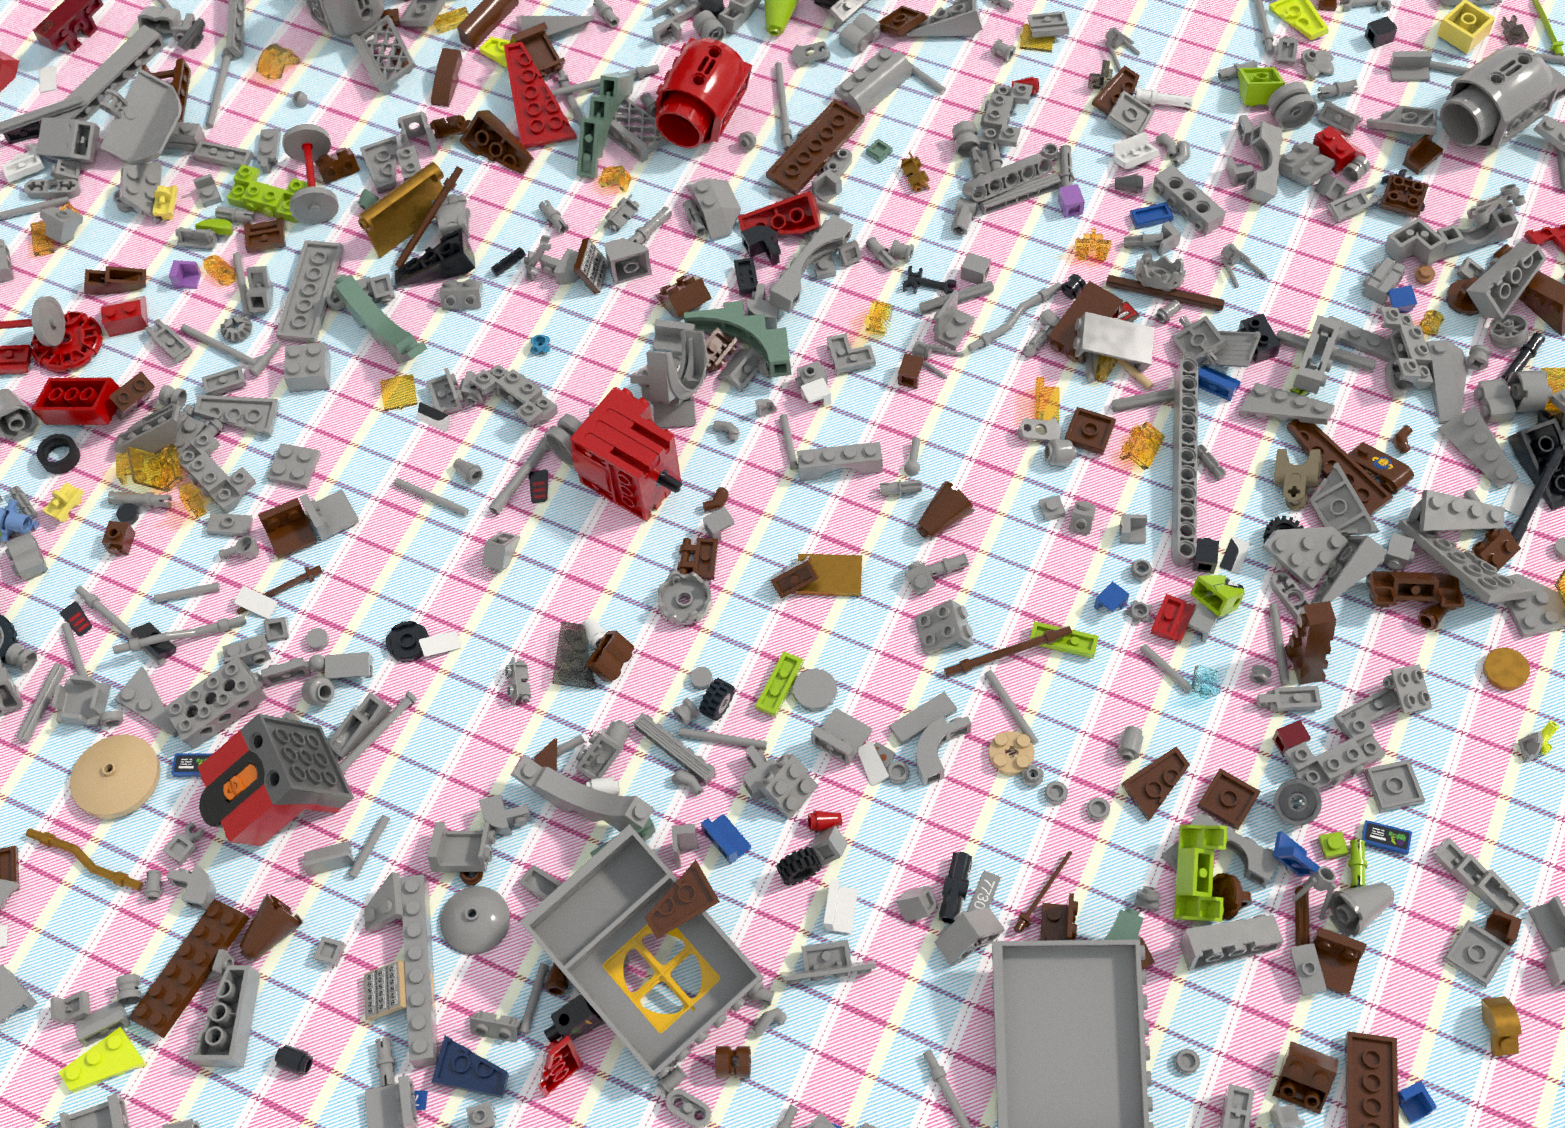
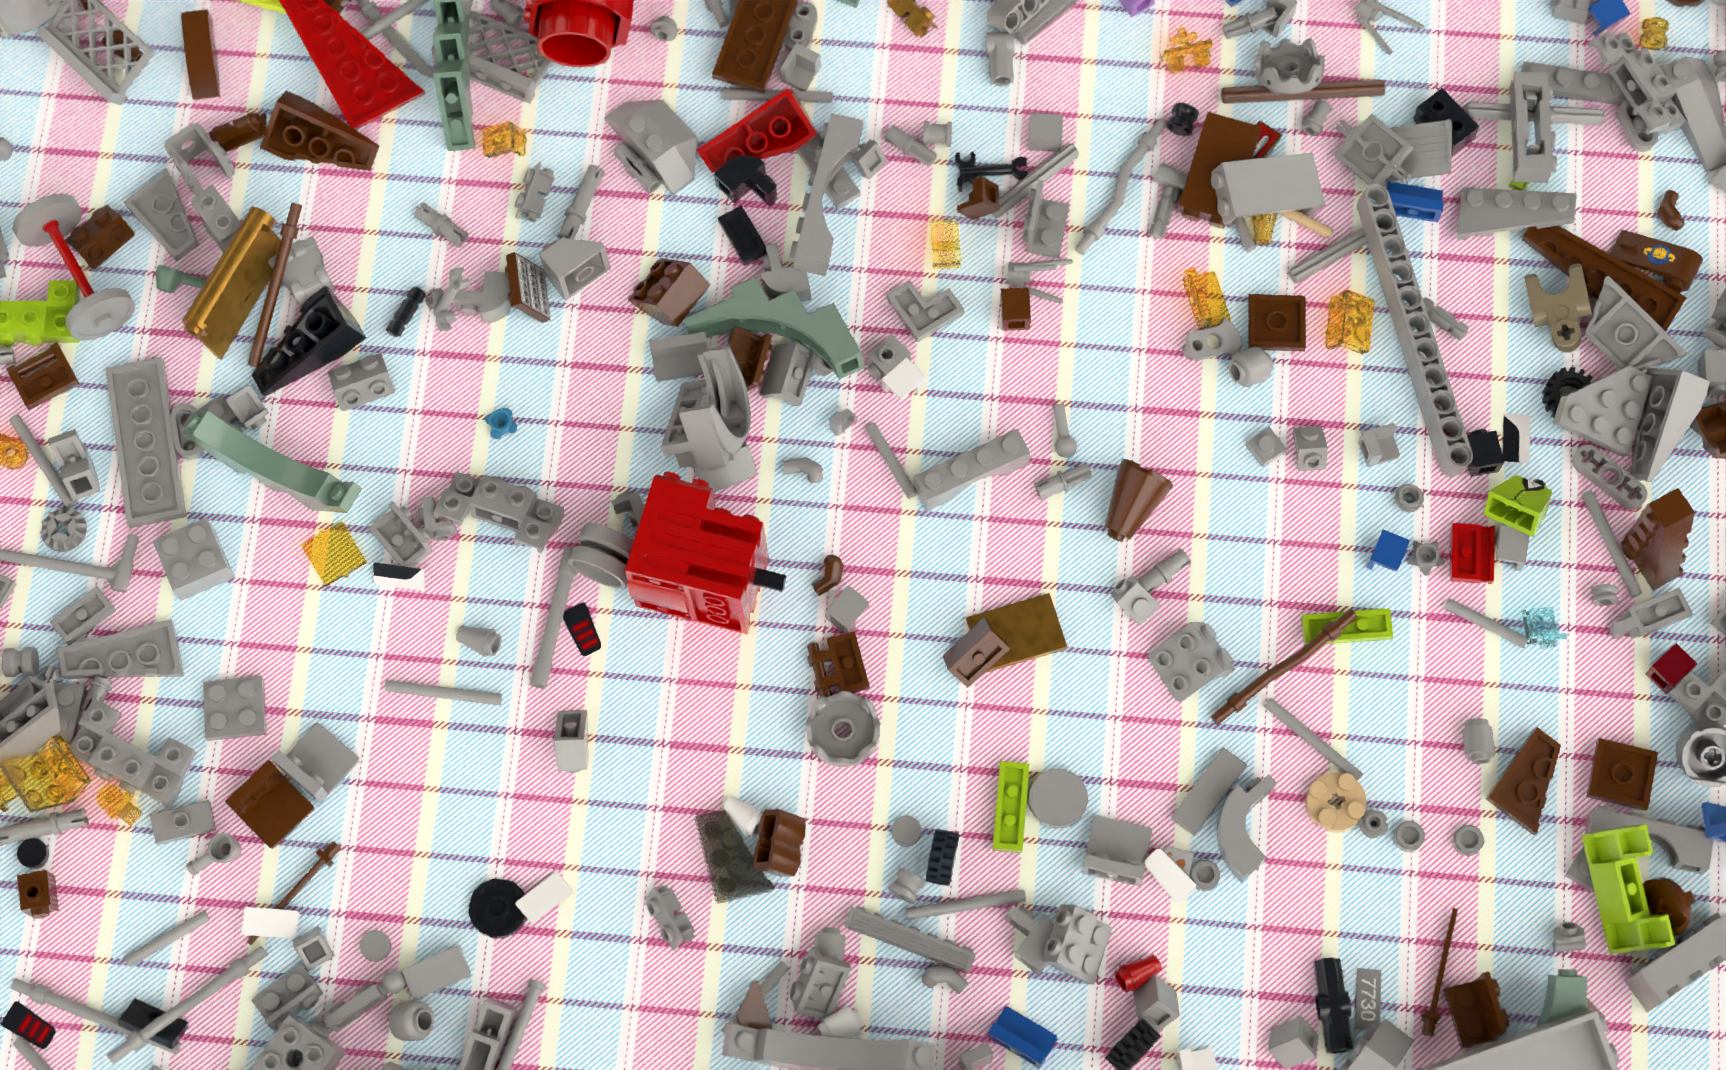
camera: 20 degrees left, 10 degrees up
(915, 297) = (982, 201): none -> reddish brown panel

